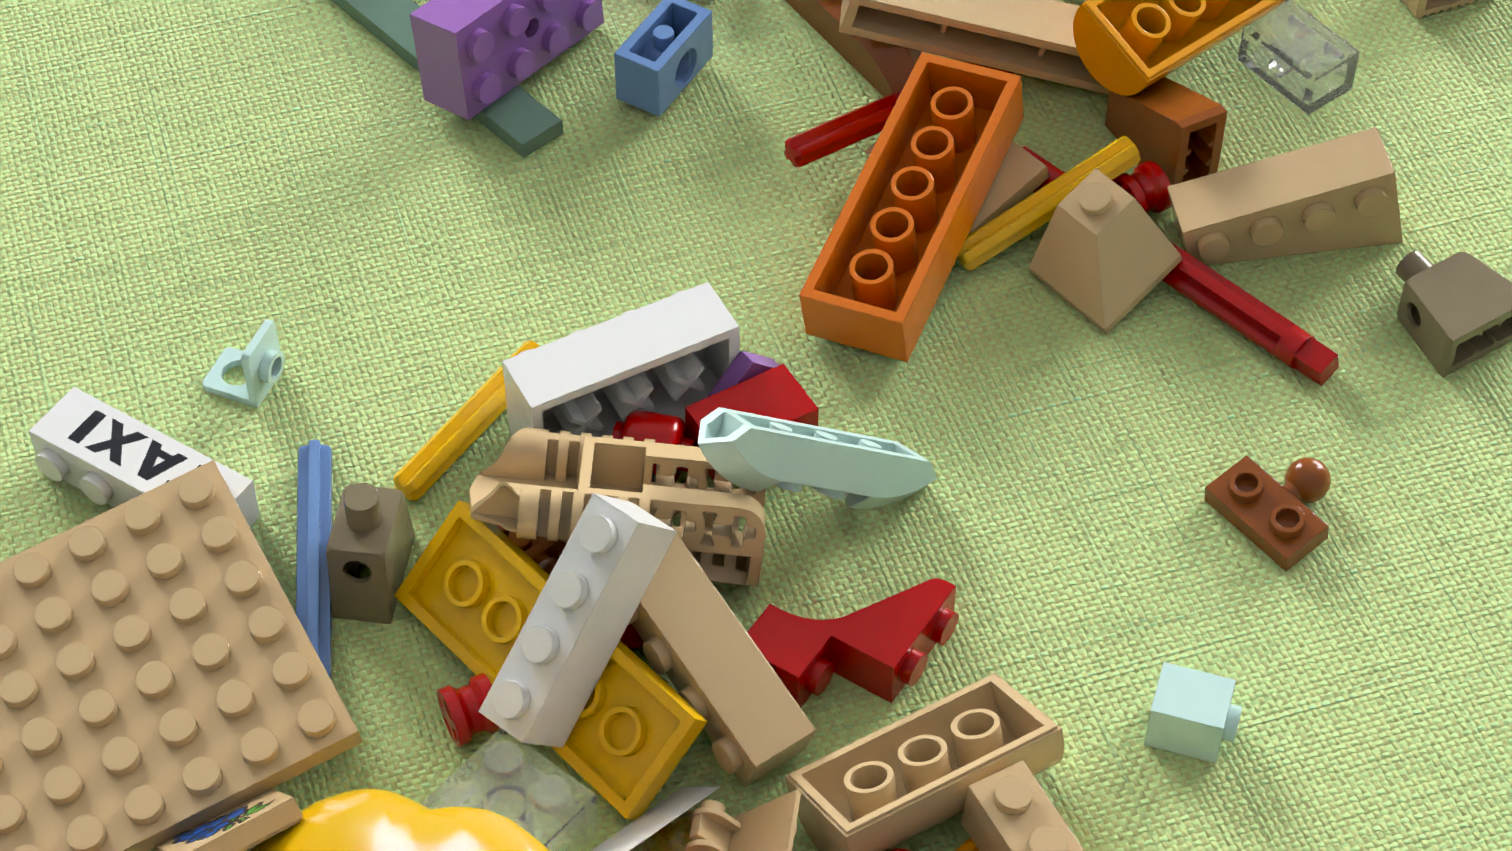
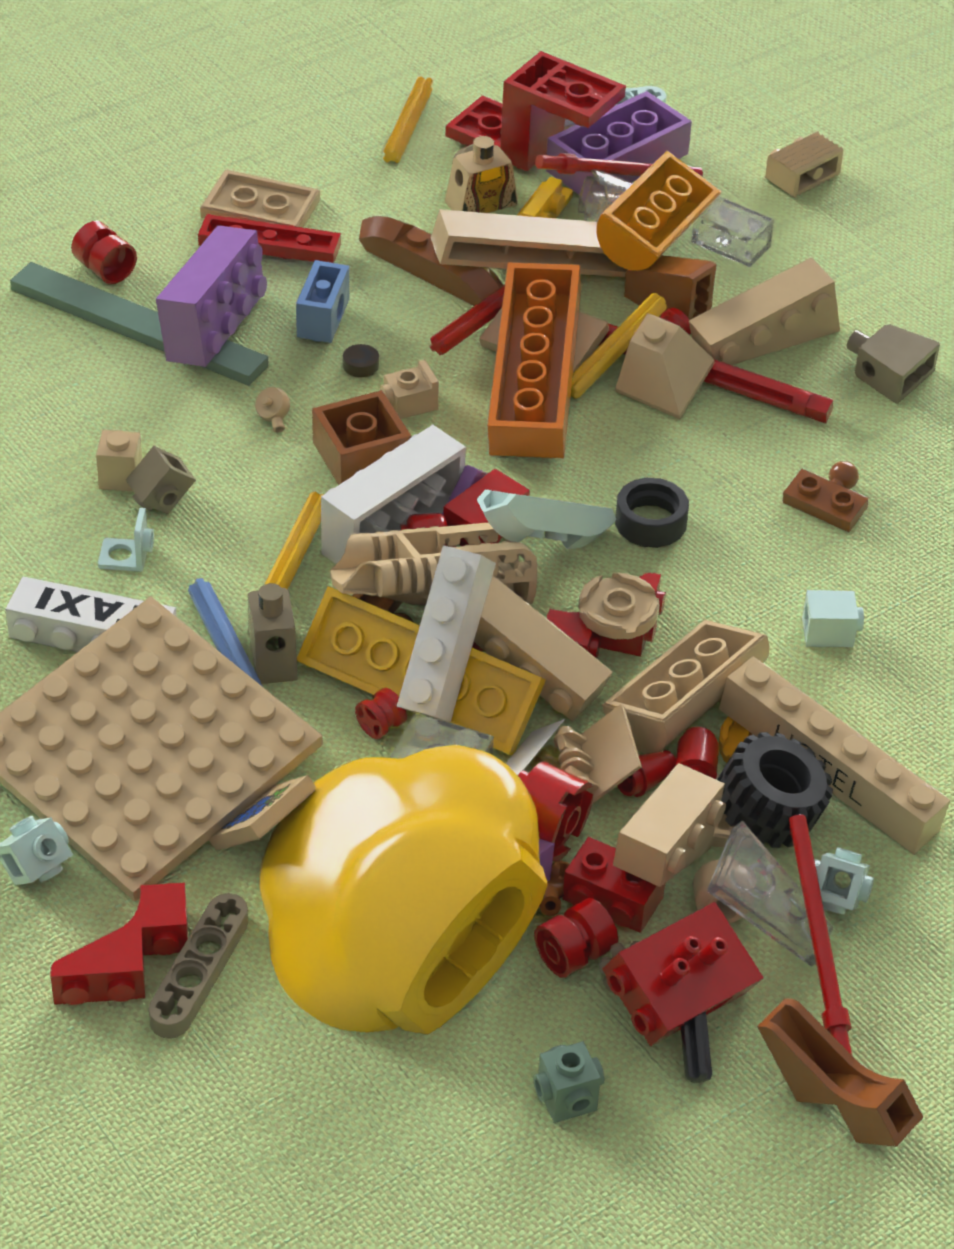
camera: 20 degrees left, 5 degrees down
(289, 237) = (117, 457): none -> tan brick
(326, 279) = (160, 480): none -> dark tan brick
(534, 198) = (273, 406): none -> tan piece
(621, 263) = (356, 433): none -> dark orange brick
(688, 151) = (360, 360): none -> dark brown tile
(730, 214) = (412, 390): none -> tan brick
(868, 625) = (618, 606): none -> tan tile
(995, 443) = (646, 531): none -> black tyre

